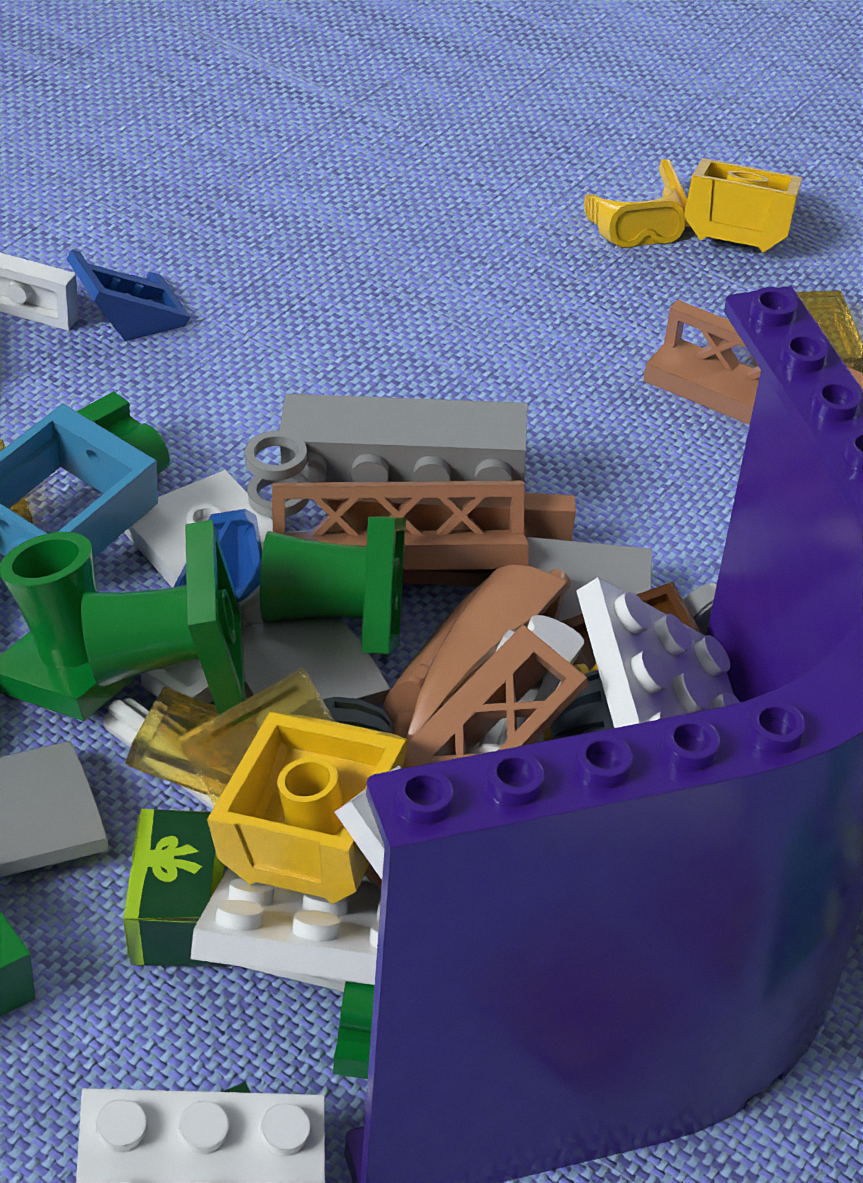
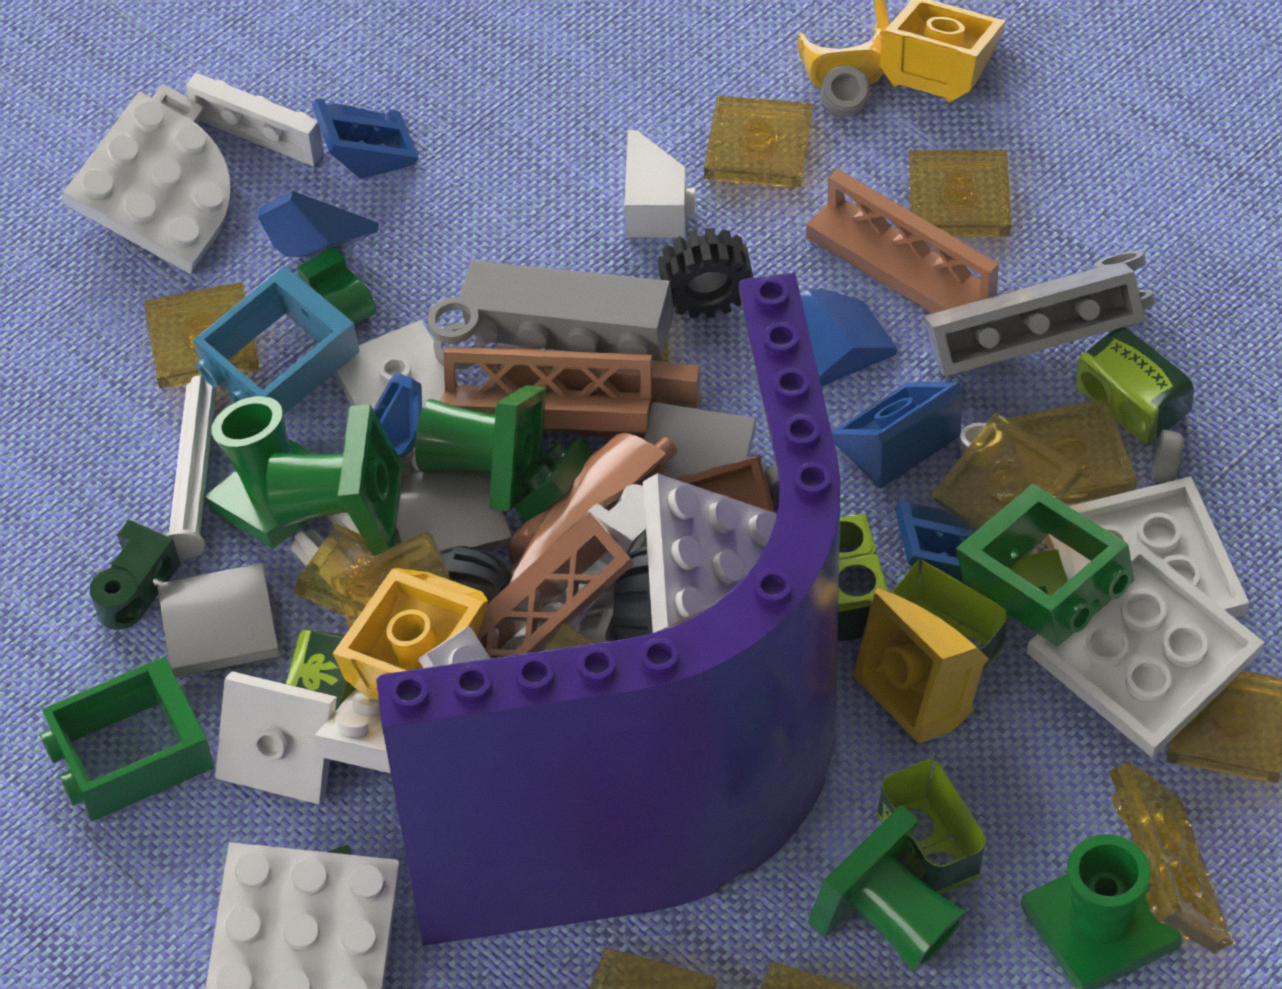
camera: 15 degrees right, 10 degrees up
(81, 367) = (308, 226): none -> blue slope
(123, 947) = (270, 737): none -> white plate
(427, 620) = (552, 477): none -> dark green plate
(471, 335) = (655, 191): none -> white slope
(569, 292) = (758, 141): none -> clear yellow plate
(575, 420) = (719, 256): none -> black tyre
(650, 243) = (845, 91): none -> light grey tile
(692, 472) = (843, 334): none -> blue slope

